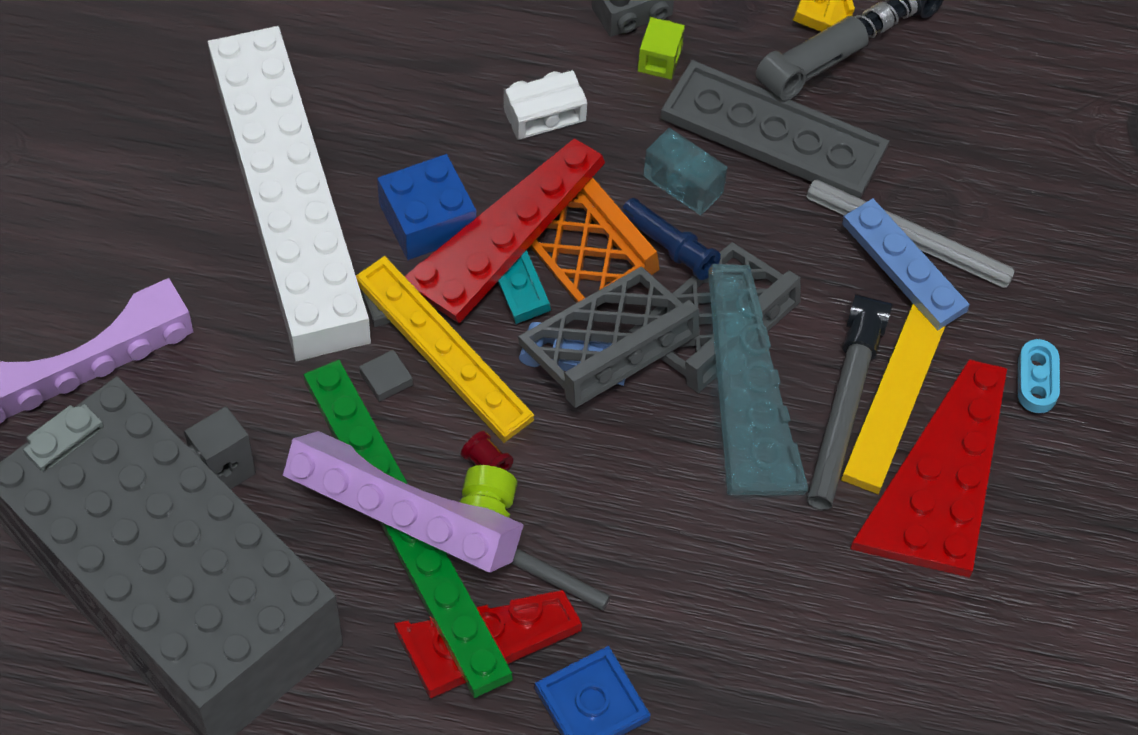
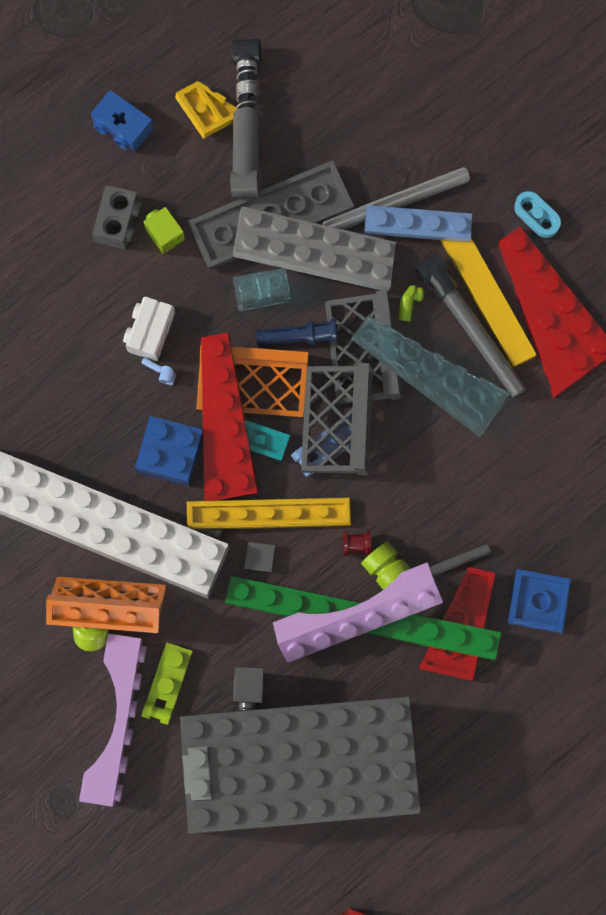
camera: 50 degrees left, 20 degrees up
(160, 259) = (90, 638): none -> lime head
(173, 379) = (167, 682): none -> lime plate
(197, 250) = (94, 611): none -> orange fence
(510, 153) = (166, 376): none -> light blue hand
(776, 184) = (314, 249): none -> light grey plate
(814, 317) = (406, 302): none -> lime arm

